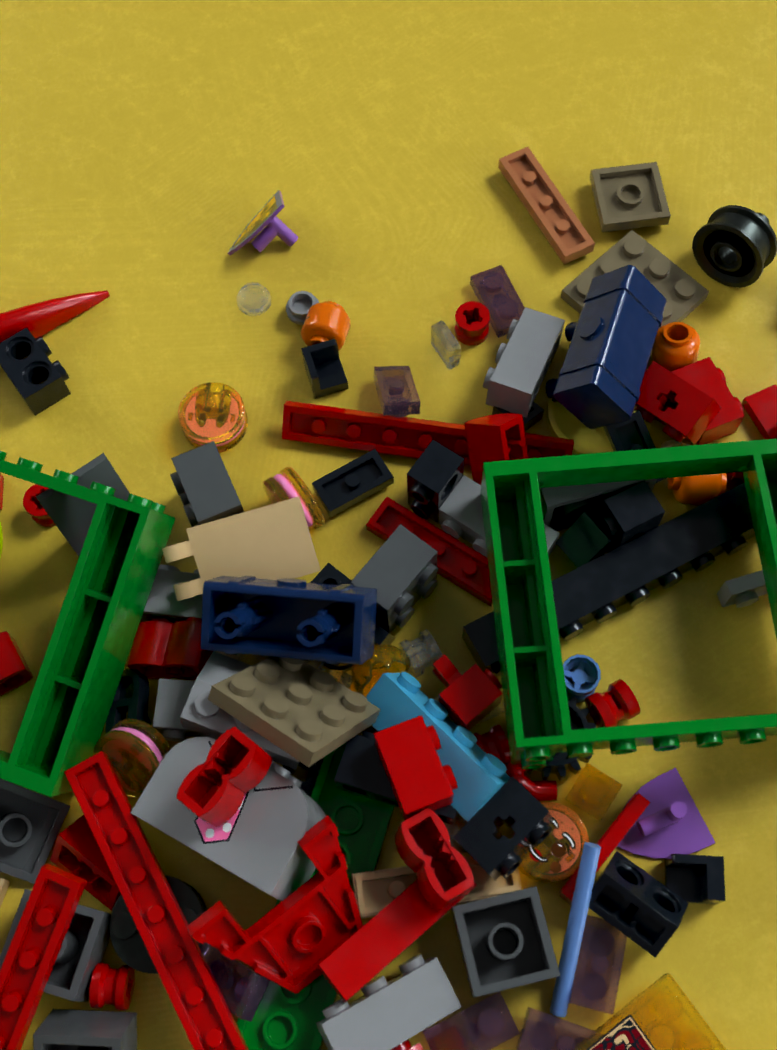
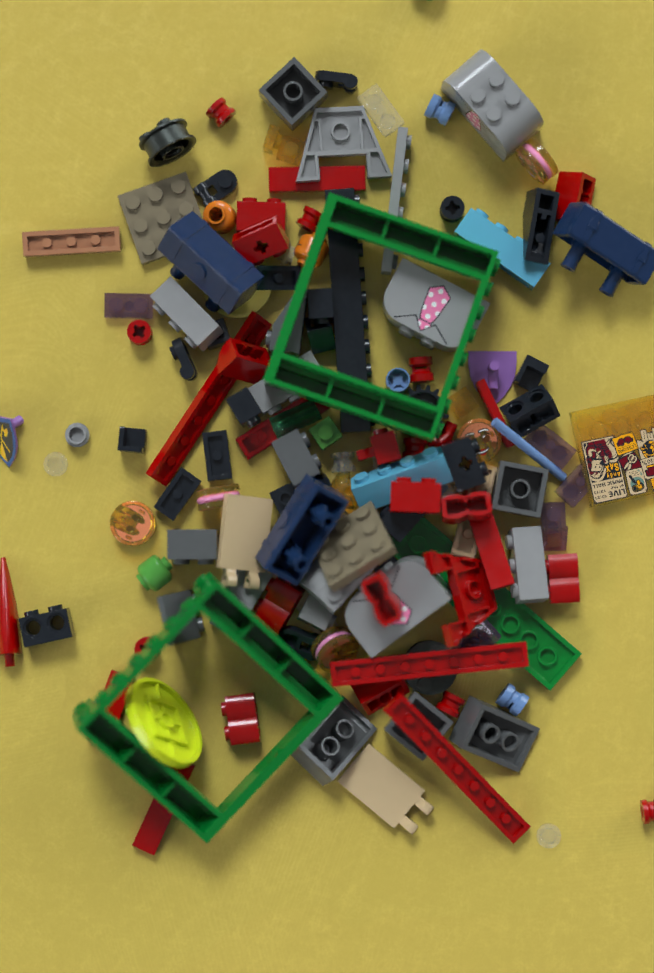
camera: 70 degrees left, 20 degrees up
(151, 468) = (154, 573): none -> bright green head
(273, 453) = (177, 494): none -> black plate
(324, 323) = (102, 427): orange head -> none
(396, 391) = (169, 402): plate -> none
(445, 344) = (148, 356): clear tile -> none
(451, 609) = (325, 433): none -> bright green brick
(455, 557) = (295, 418): none -> clear green tile
(458, 393) = (180, 352): none -> black plate
(629, 197) = (91, 184): dark tan plate -> none
(713, 665) = (428, 307): none -> light grey brick
(722, 341) = (223, 182): none -> black plate

